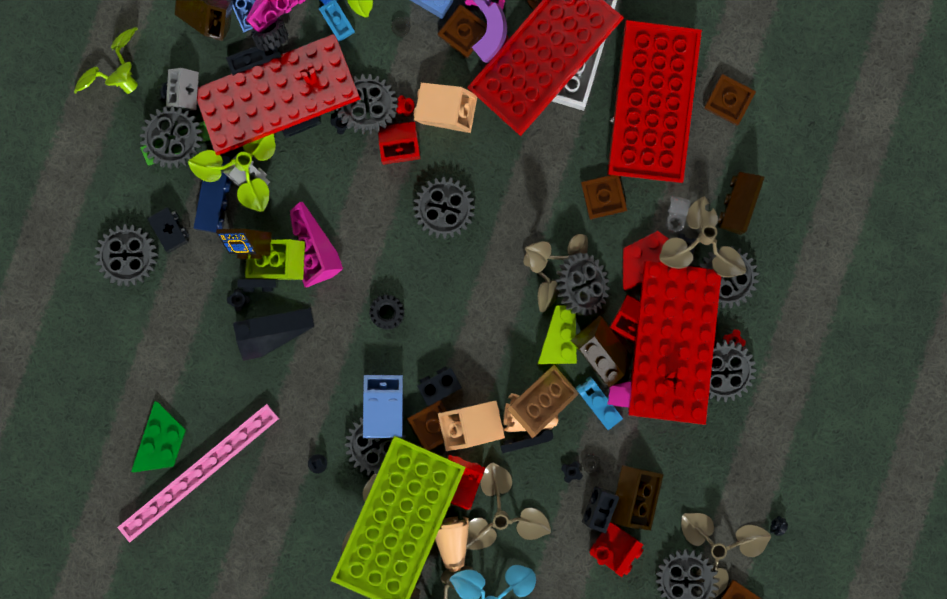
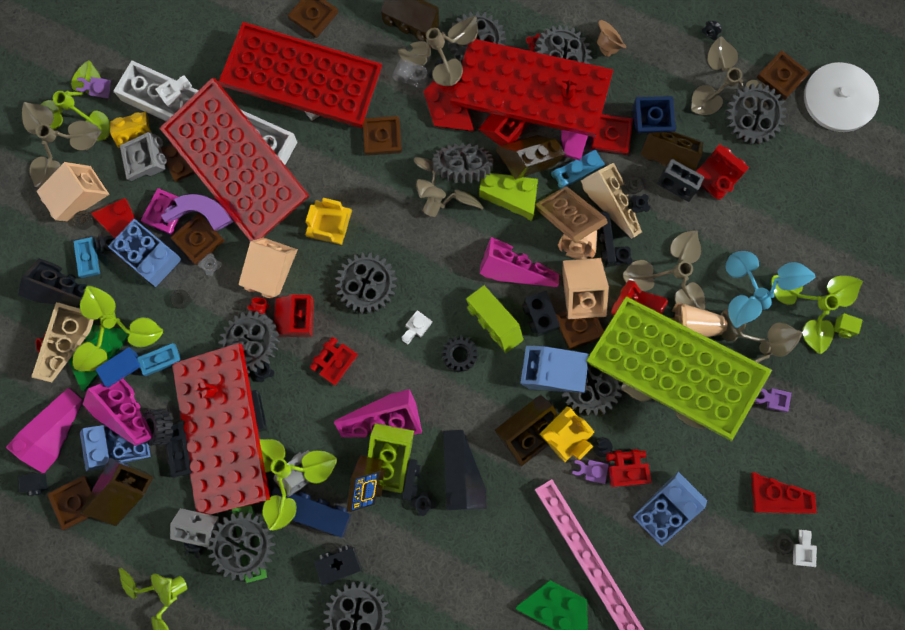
camera: 80 degrees left, 10 degrees down
(268, 536) = (670, 509): none -> medium blue slope
(293, 459) = (594, 471): none -> medium lavender plate
(294, 493) = (628, 474): none -> red plate
(321, 428) = (568, 435): none -> yellow panel
(322, 392) = (523, 429): none -> dark brown slope
(359, 195) = (337, 365): none -> red plate
(410, 266) = (417, 326): none -> white plate
(426, 340) = (495, 319): none -> lime wedge
(434, 49) = (209, 269): none -> clear plate
(483, 346) = (506, 266): none -> dark pink wedge
(502, 158) = (328, 221): none -> yellow panel
(517, 456) = (626, 251): none -> black plate
(577, 436) = (606, 192): none -> tan wedge
(643, 435) = (613, 135): none -> red plate
(665, 474) = (654, 114): none -> dark blue slope
(749, 418) = (609, 39): none -> medium nougat piece

